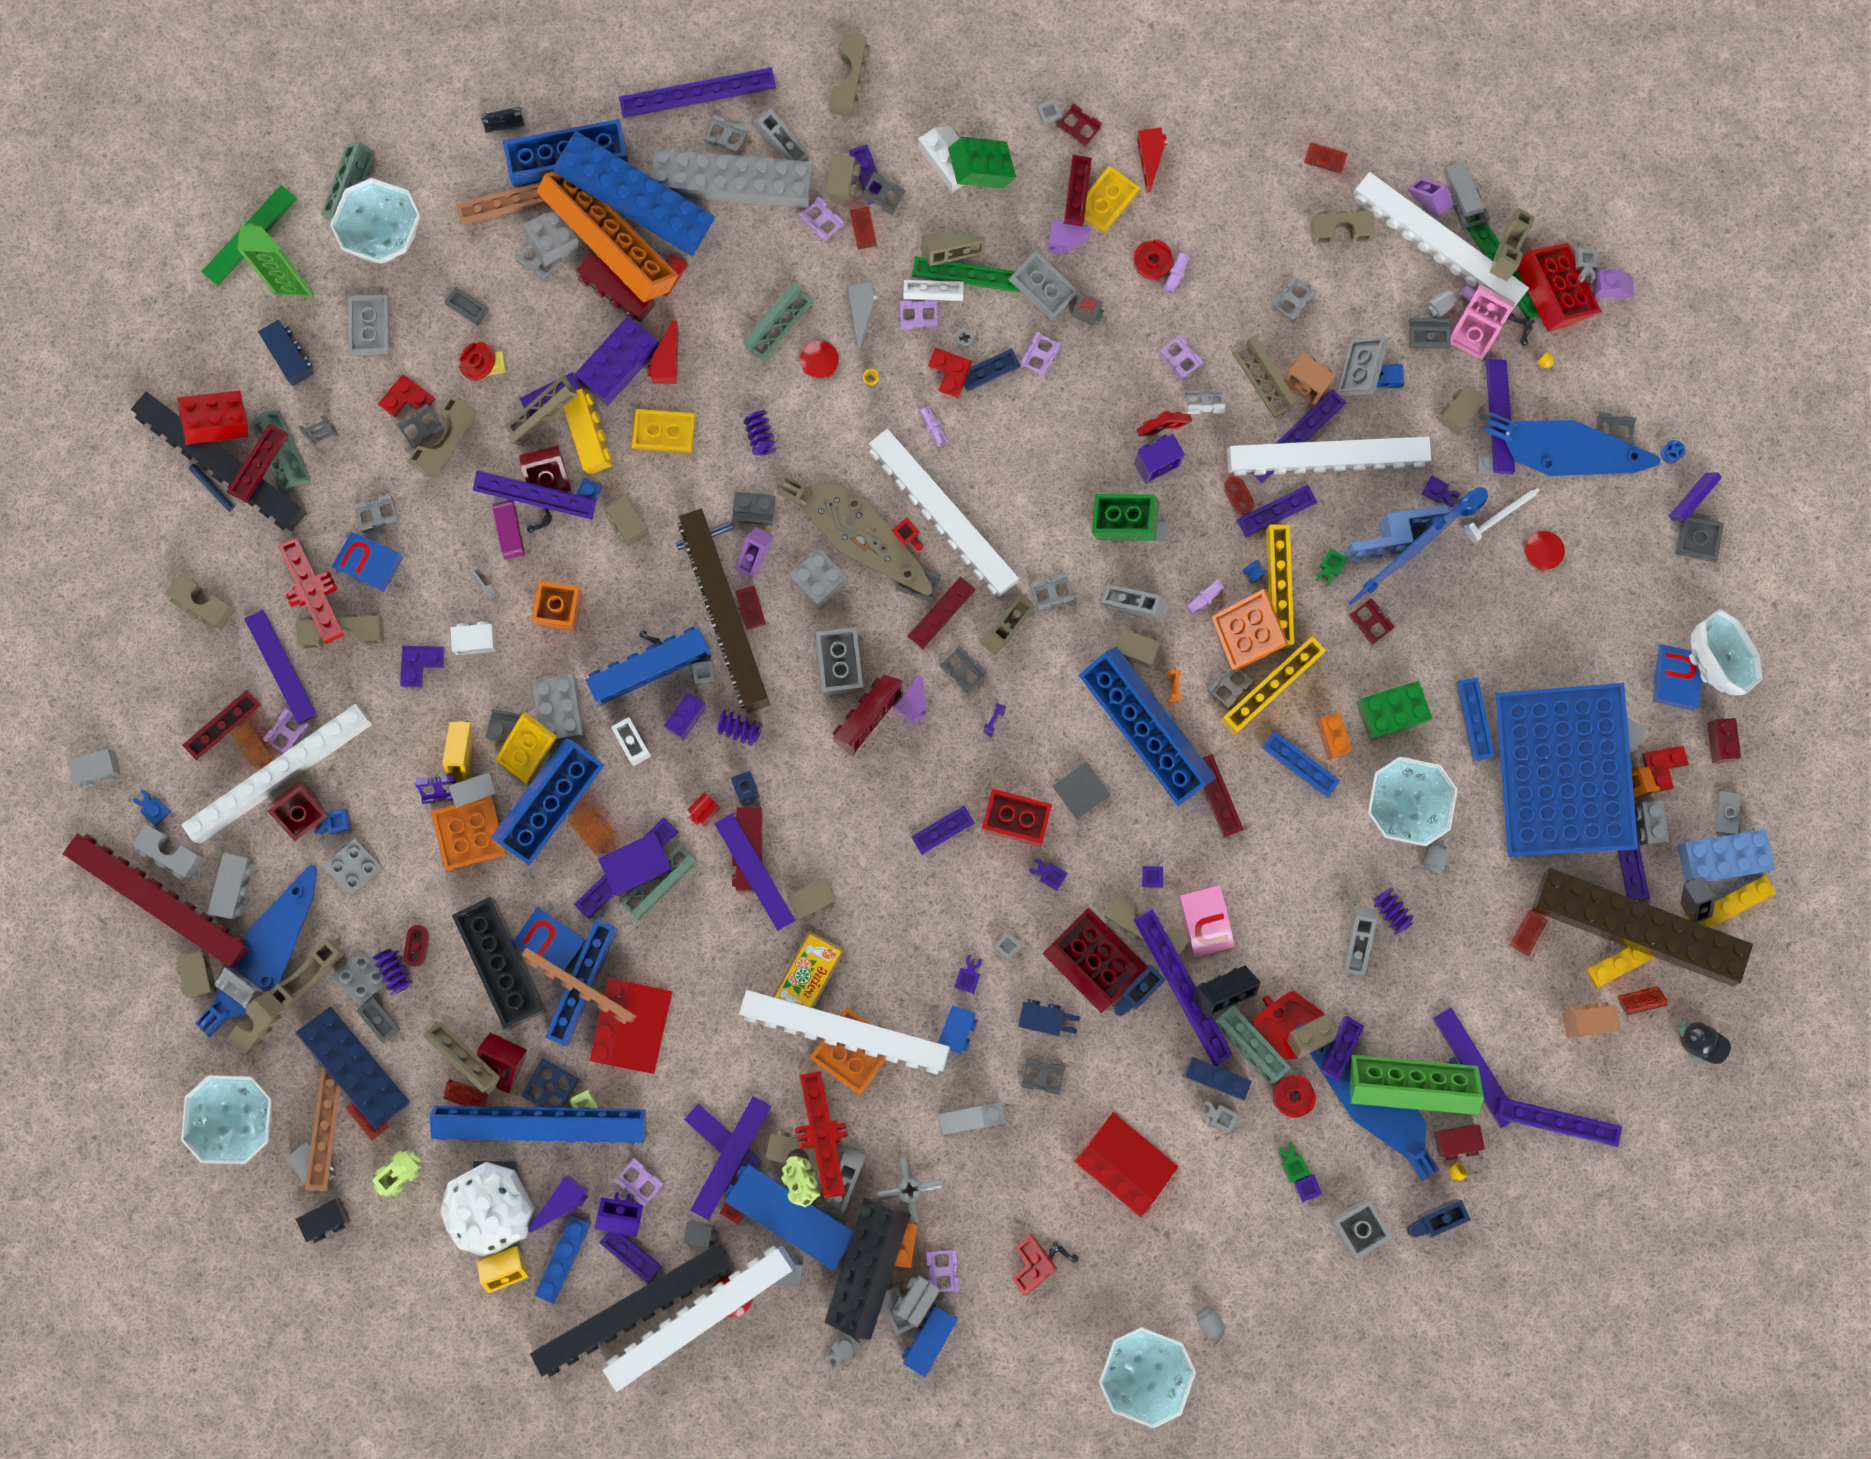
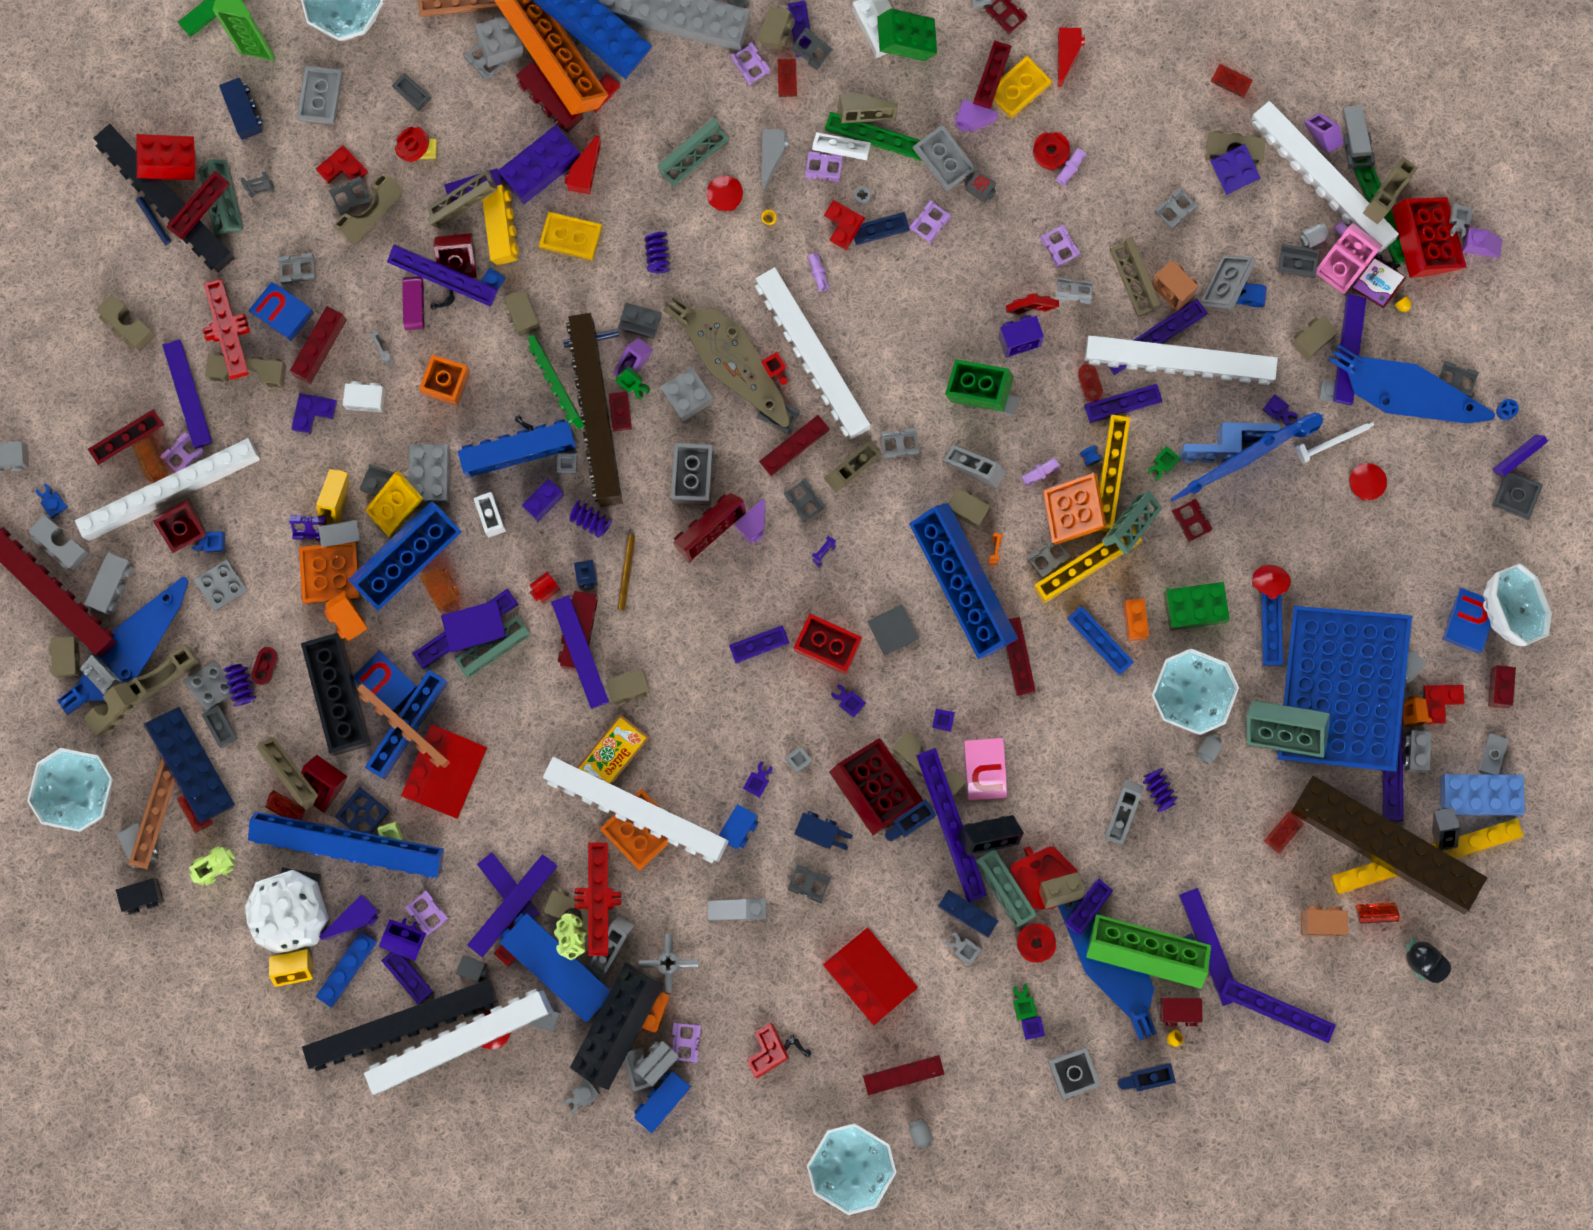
camera: 20 degrees right, 0 degrees up
(414, 591) = (318, 345): none -> dark red brick
(495, 877) = (346, 616): none -> orange brick
(680, 594) = (557, 388): none -> green plate
(757, 573) = (632, 381): none -> green plate
(787, 768) = (626, 572): none -> pearl gold bar
(1181, 1263) = (903, 1075): none -> dark red brick
(1309, 629) = (1130, 517): none -> sand green fence
(1348, 248) = (1235, 169): none -> dark purple plate
(1466, 670) = (1271, 580): none -> red dish
(1514, 823) = (1287, 728): none -> sand green slope
(1517, 342) = (1379, 283): none -> tile

